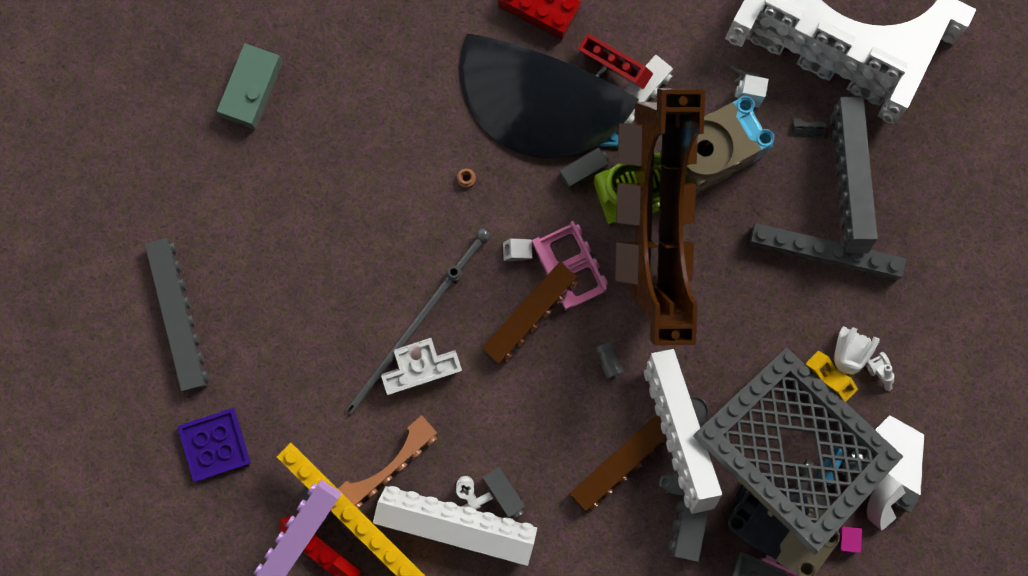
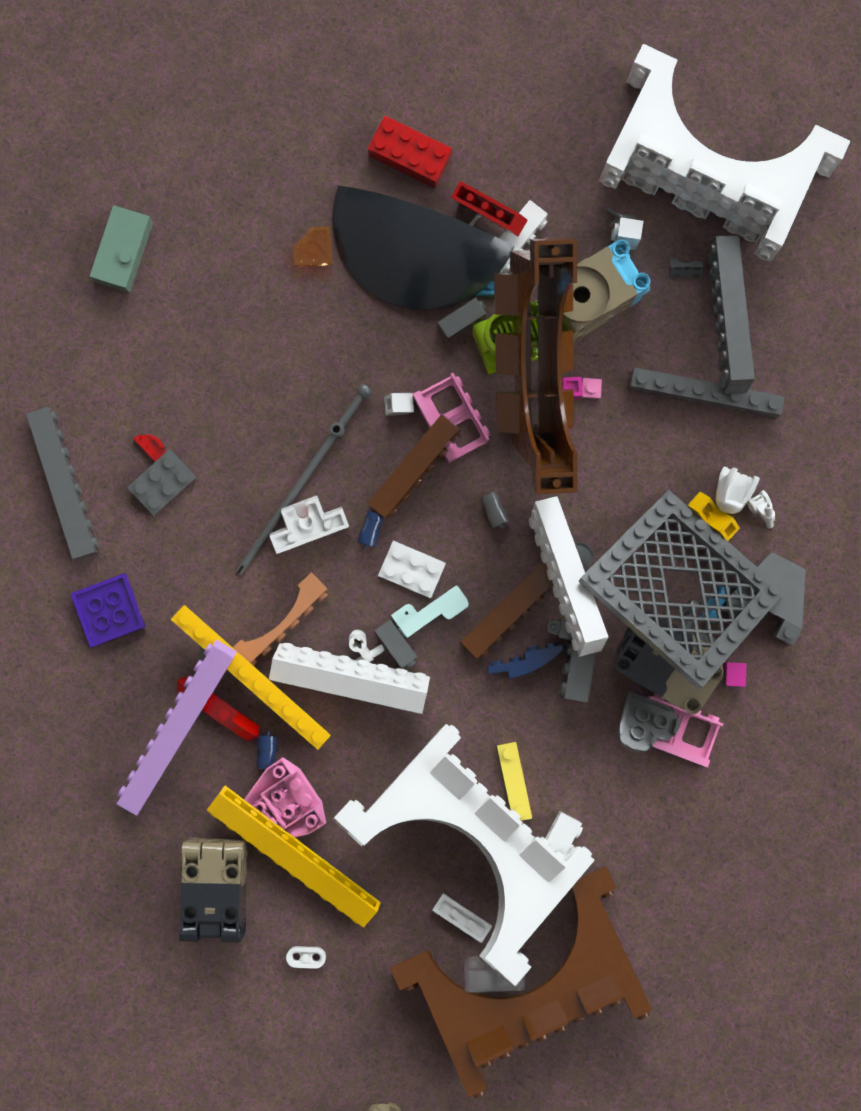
camera: 10 degrees left, 5 degrees up
(269, 282) = (151, 445): none -> red tile
(275, 317) = (161, 482): none -> dark grey plate
(440, 93) = (314, 248): none -> clear orange plate
(464, 172) = (344, 327): nougat plate -> none
(482, 377) = (370, 531): none -> dark blue piece
(523, 416) = (411, 569): none -> white plate
(558, 454) = (448, 605): none -> light aqua piece
(643, 515) = (533, 659): none -> dark blue slope
(696, 237) = (573, 383): none -> dark pink panel
(709, 242) = (591, 388): none -> bright pink plate
(880, 502) = (766, 631): white brick -> none

